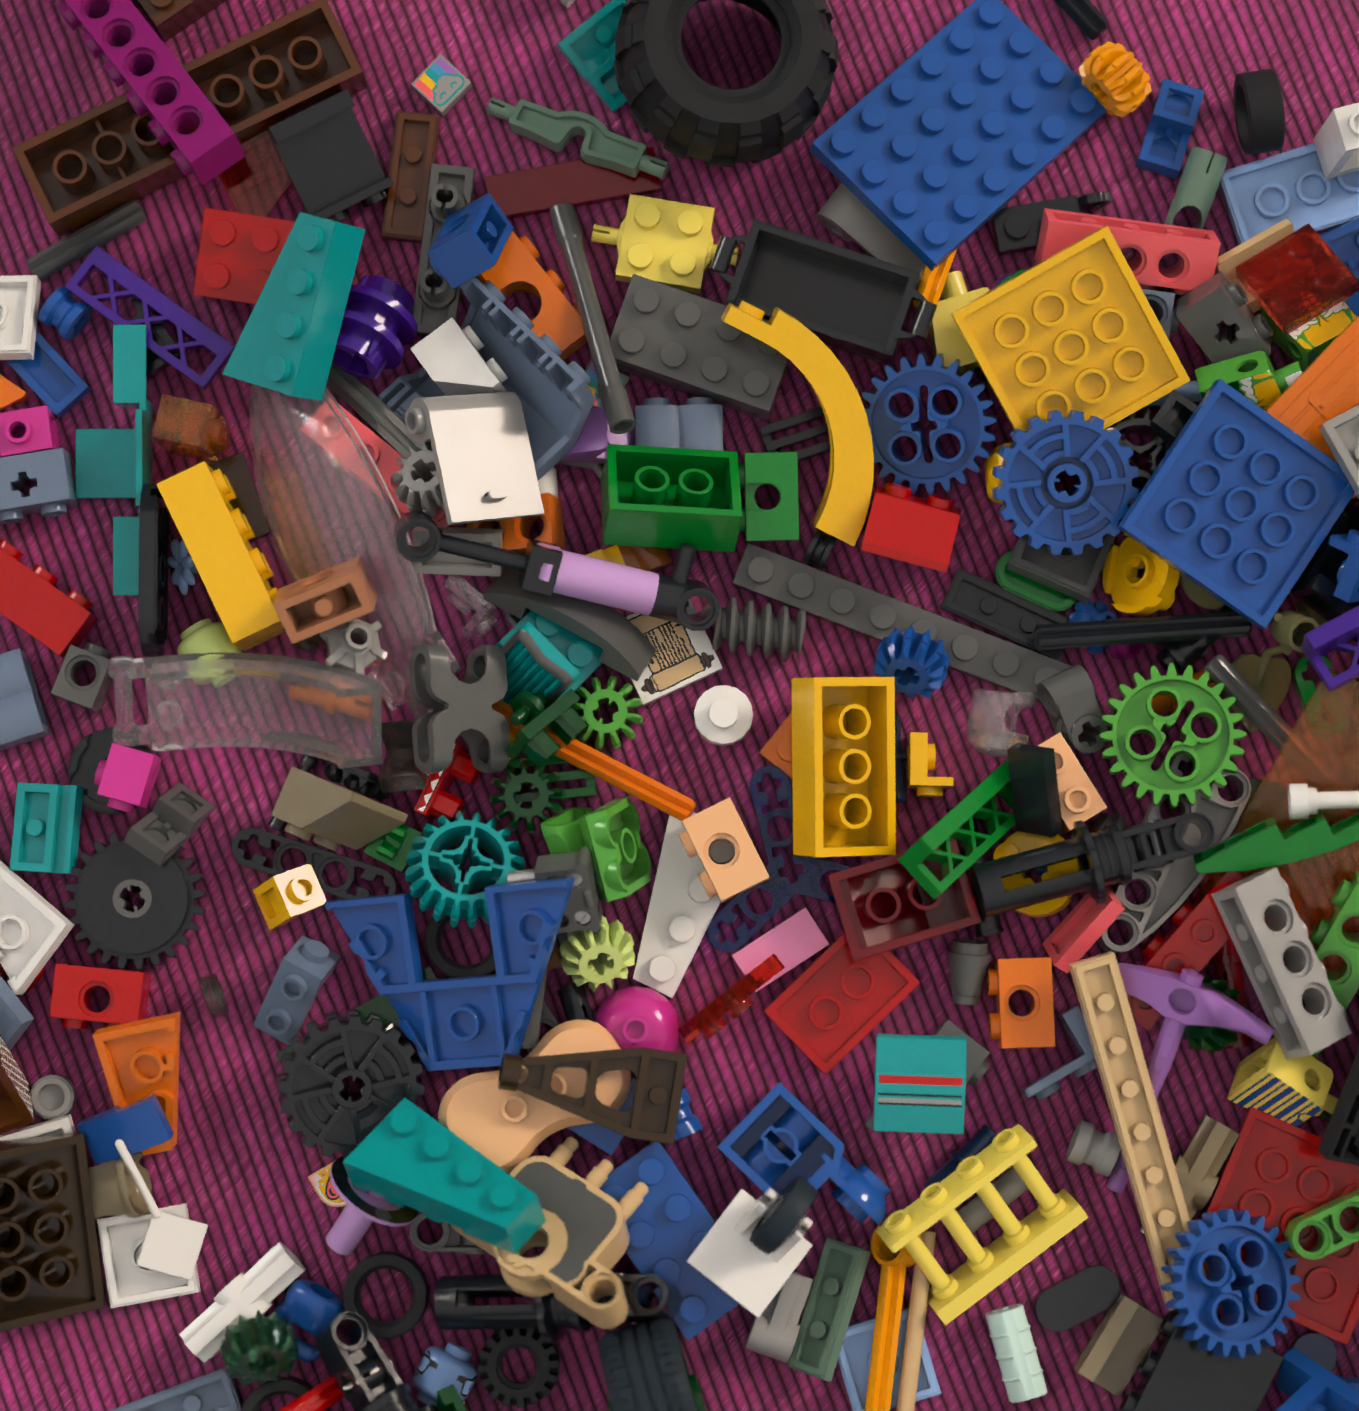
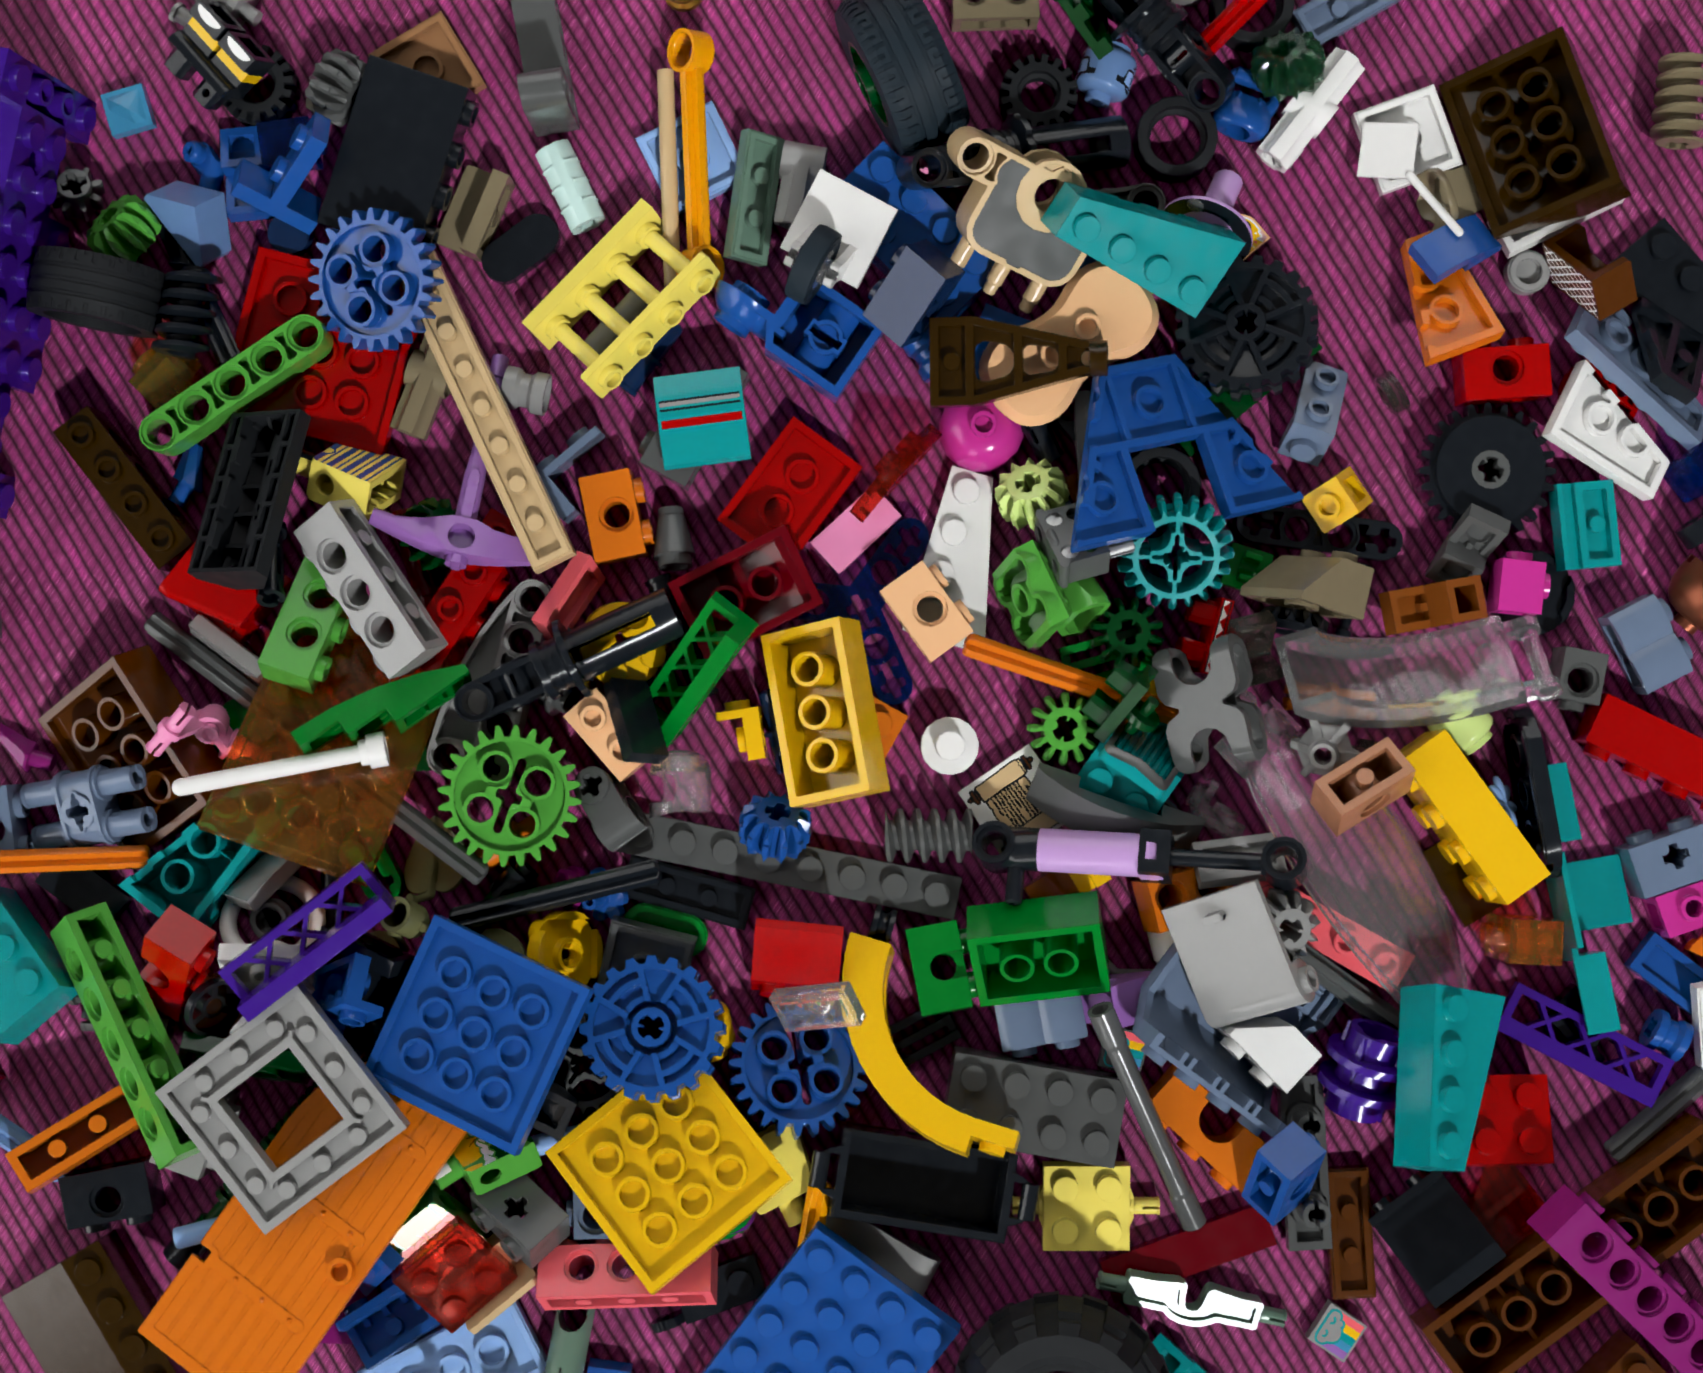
camera: 175 degrees right, 5 degrees up
(215, 772) = (1433, 605): none -> dark orange brick
(686, 1174) = (912, 291): none -> dark blue brick
(899, 476) = (817, 1006): none -> clear plate

